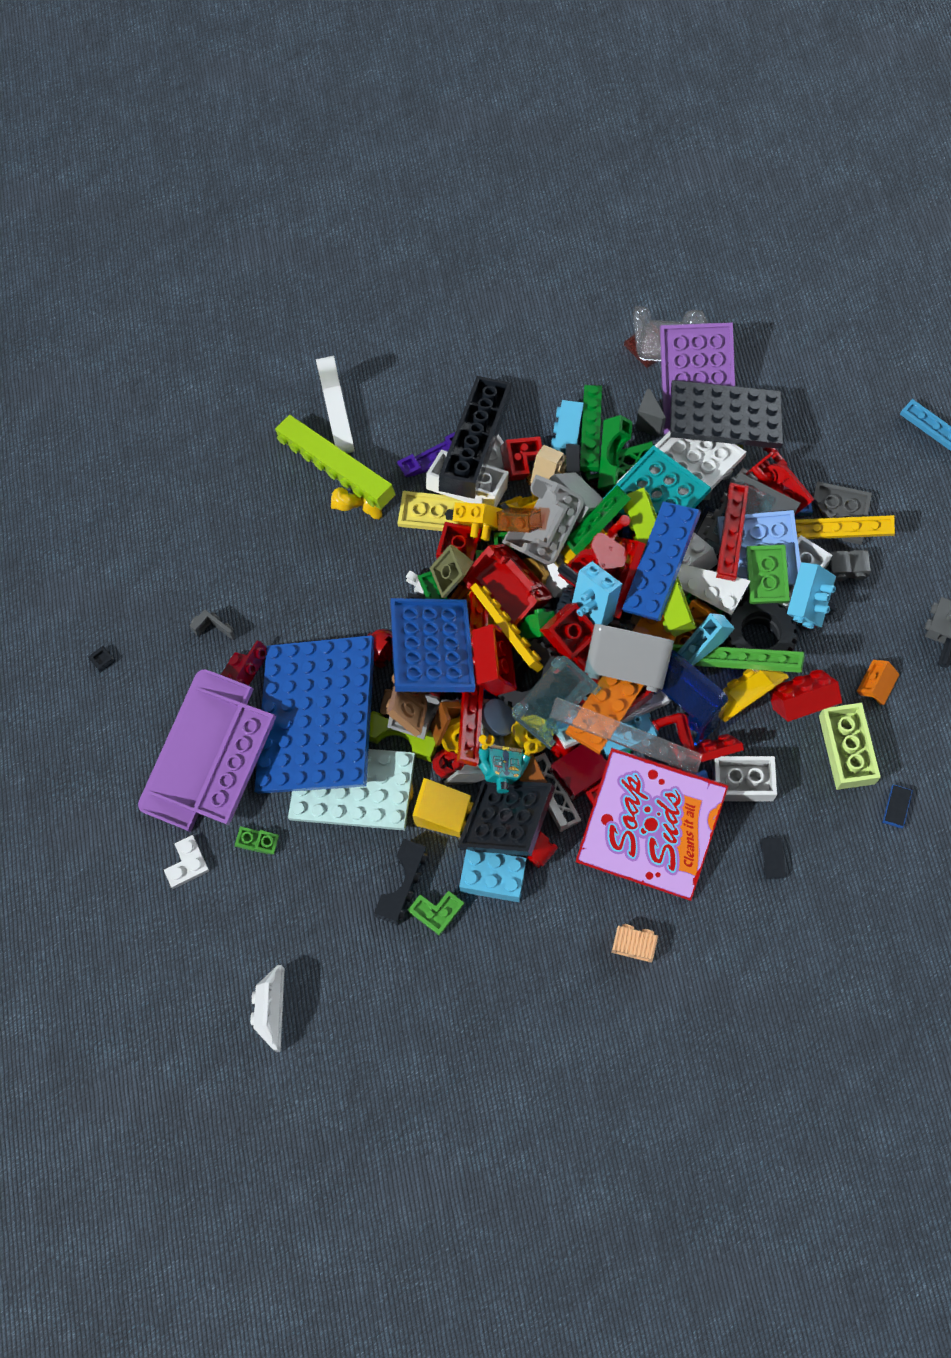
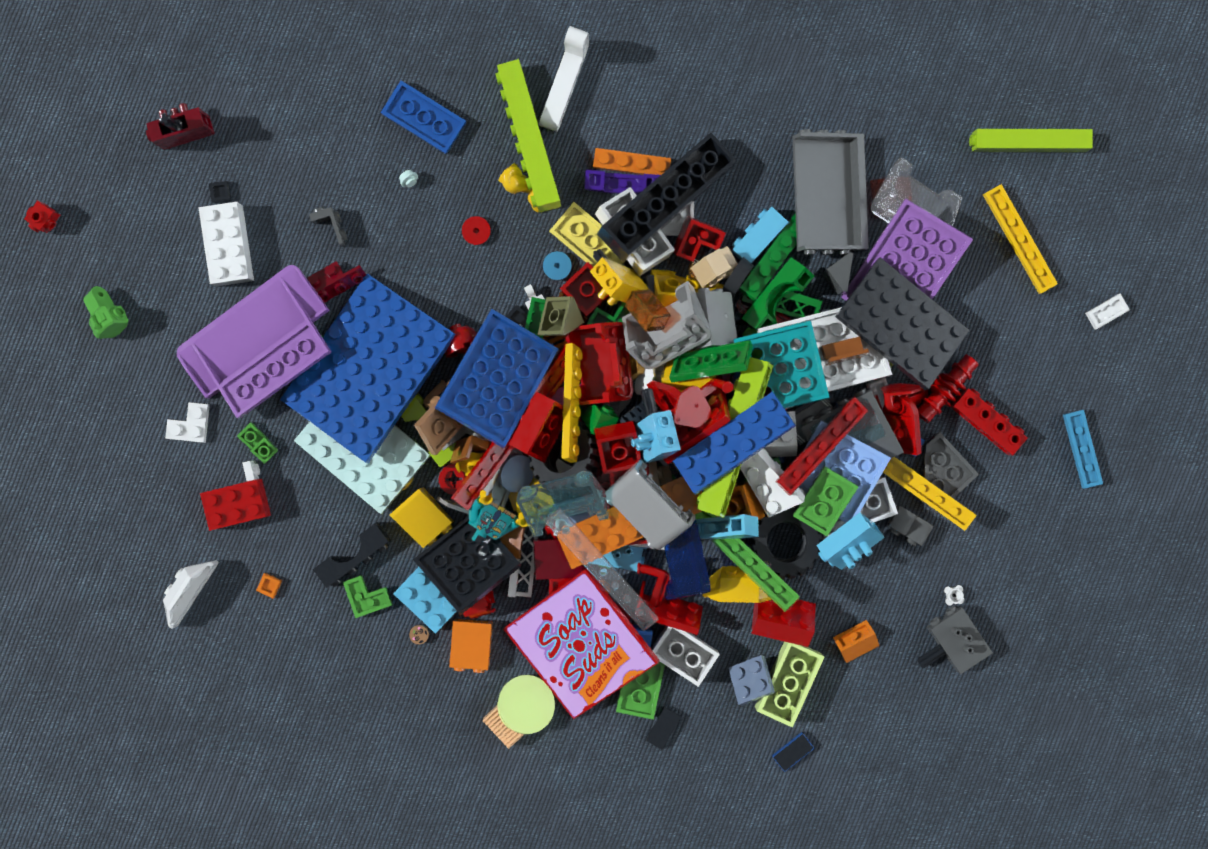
camera: 25 degrees right, 20 degrees up
(38, 624) = (179, 127): none -> dark red piece
(60, 814) = (105, 317): none -> bright green piece
(132, 693) = (226, 244): none -> white brick
(239, 503) = (423, 117): none -> blue plate
(256, 554) = (408, 178): none -> light aqua plate
(266, 865) = (251, 470): none -> white plate
(269, 903) = (235, 504): none -> red brick
(337, 560) = (476, 230): none -> red piece
(342, 958) = (269, 585): none -> orange tile
(421, 546) = (557, 265): none -> dark azure piece
(425, 440) = (630, 162): none -> orange plate
(505, 915) = (419, 634): none -> medium nougat tile
(557, 892) = (471, 645): none -> orange brick
(599, 364) = (830, 192): none -> panel
(641, 911) = (526, 704): none -> yellowish green tile
(697, 455) = (843, 351): none -> dark orange panel
(722, 246) = (1031, 140): none -> lime brick
(732, 838) = (642, 693): none -> bright green plate
(768, 315) = (1020, 239): none -> yellow plate
(797, 444) = (946, 387): none -> red piece
(817, 763) = (751, 680): none -> sand blue plate
(848, 451) = (988, 421): none -> red brick
(872, 323) = (1107, 311): none -> white plate
(930, 592) = (958, 599): none -> white plate

